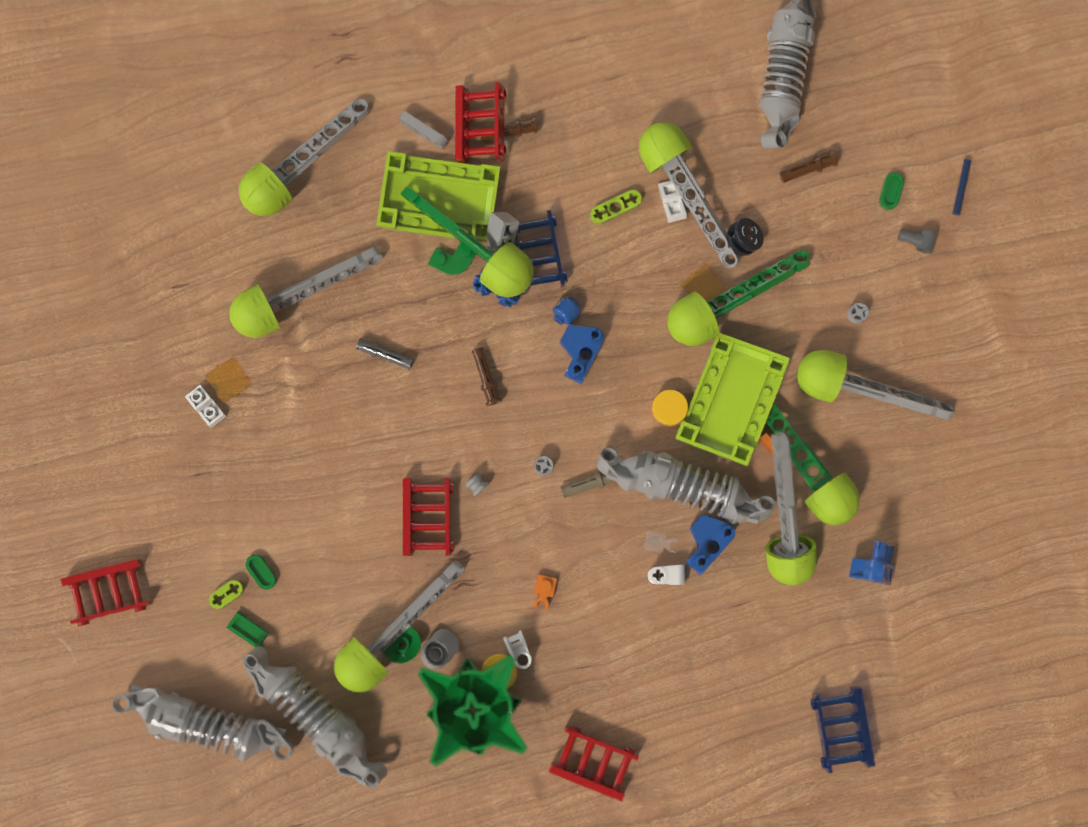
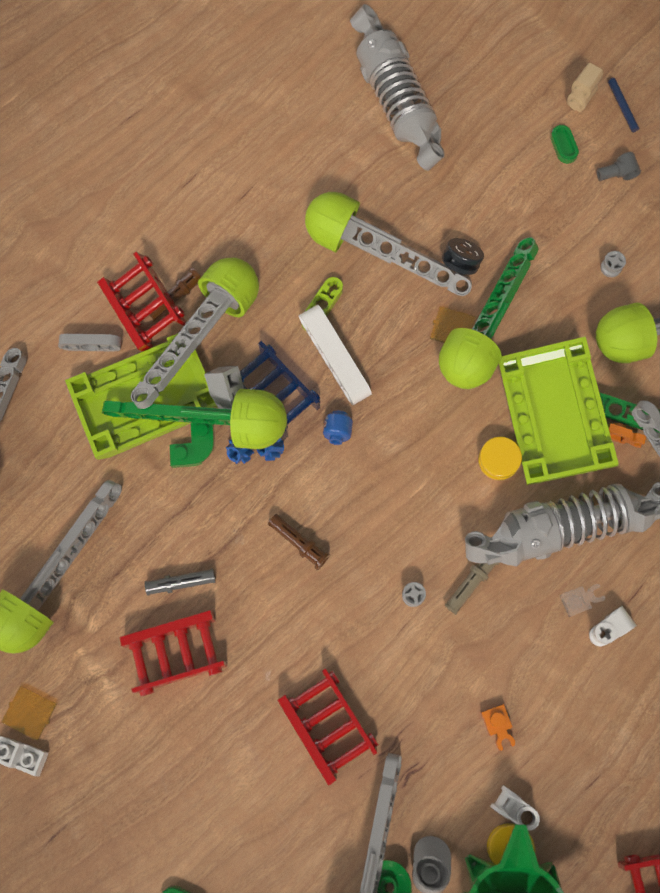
camera: 25 degrees left, 10 degrees down
(347, 382) = (157, 636): none -> red fence
(476, 484) = (358, 657): light grey wheel -> none
(552, 152) = (229, 289): none -> light grey piece
(578, 341) = (368, 450): blue piece -> none
(599, 254) = (335, 355): none -> white beam
(672, 202) = (371, 268): white slope -> none
(709, 532) = (620, 557): blue piece -> none
(816, 164) = (482, 158): reddish brown pin -> none
(935, 156) = (584, 87): none -> tan brick

